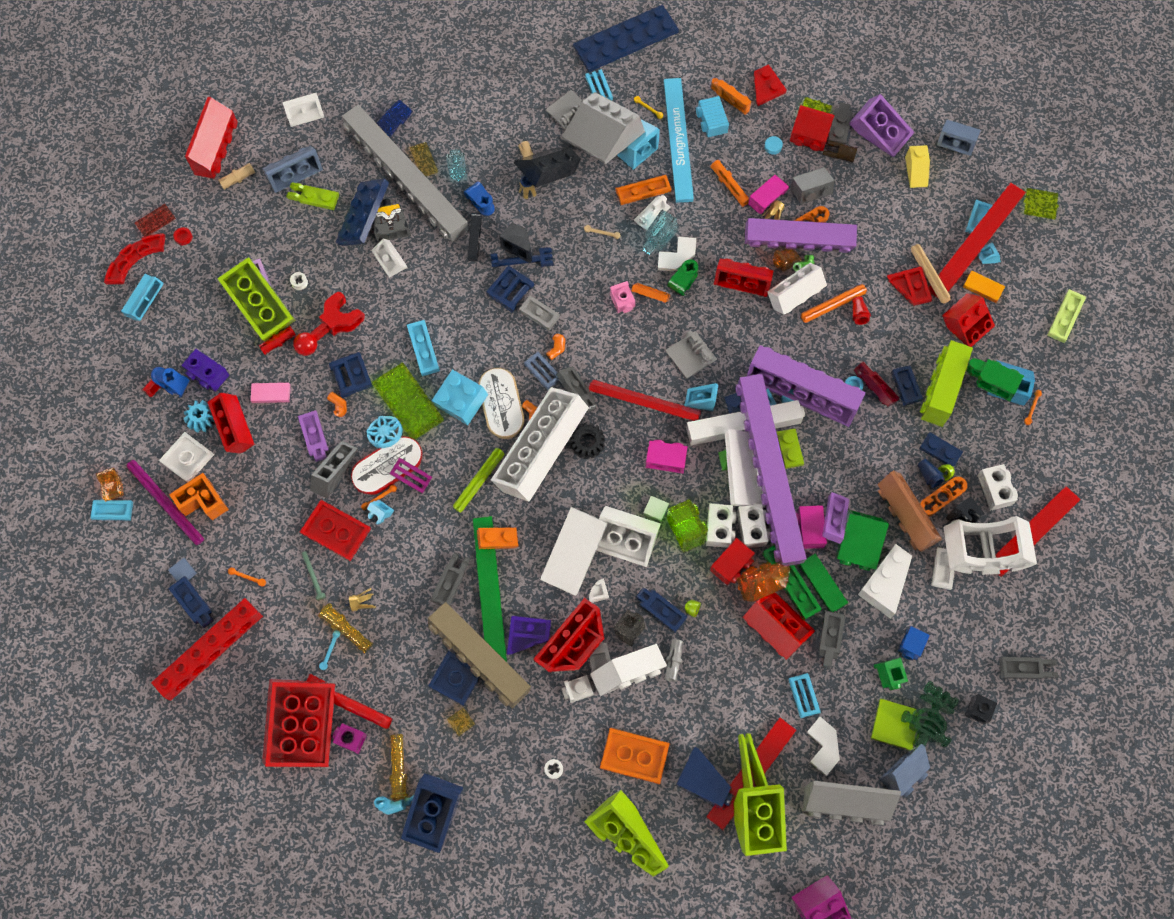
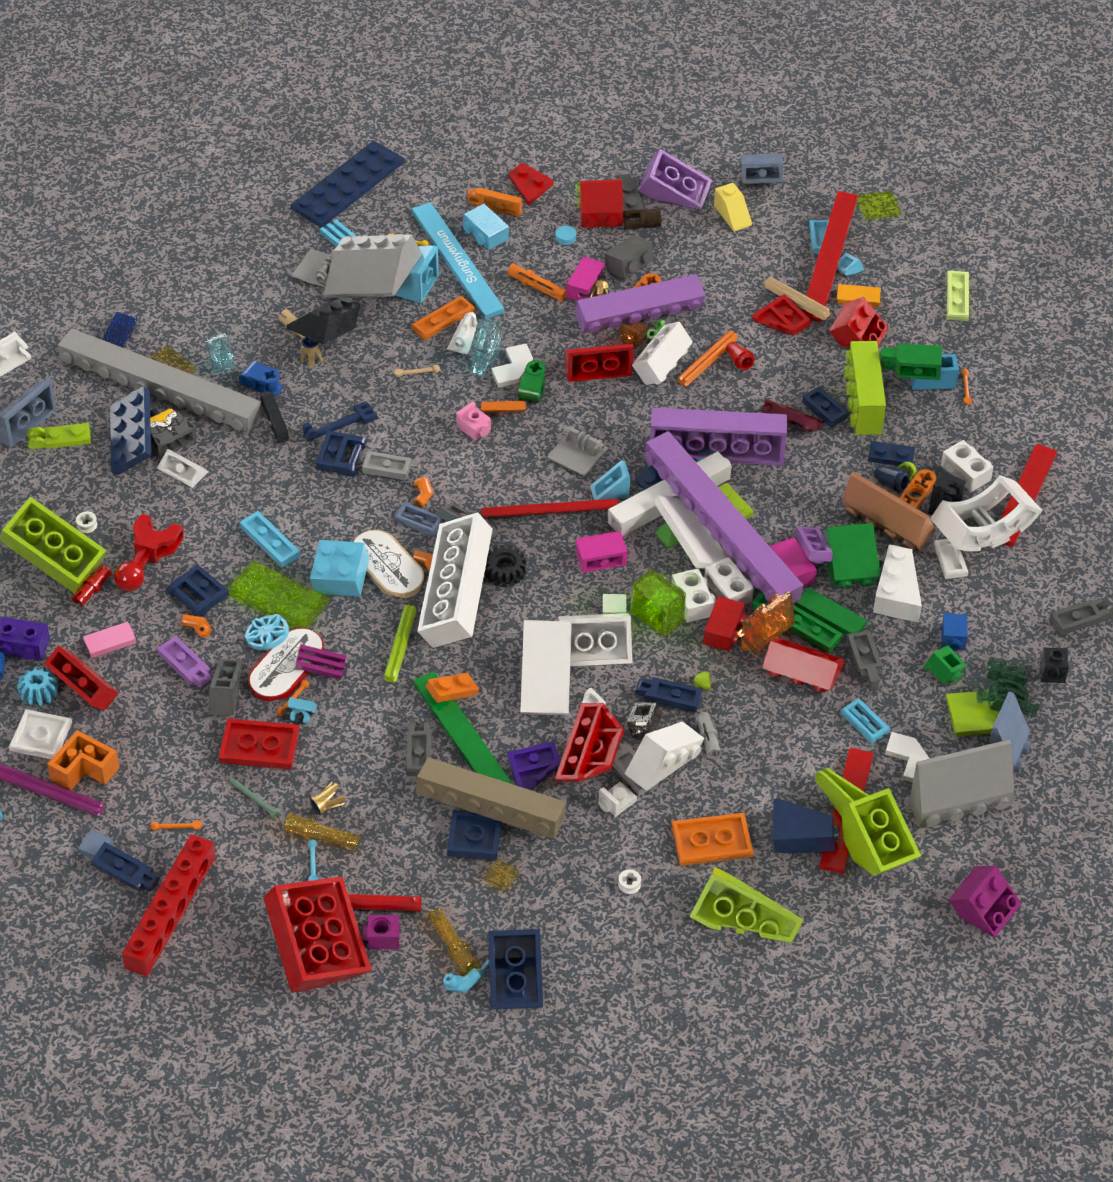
camera: 25 degrees left, 20 degrees down
(516, 241) = (328, 405): black slope -> none

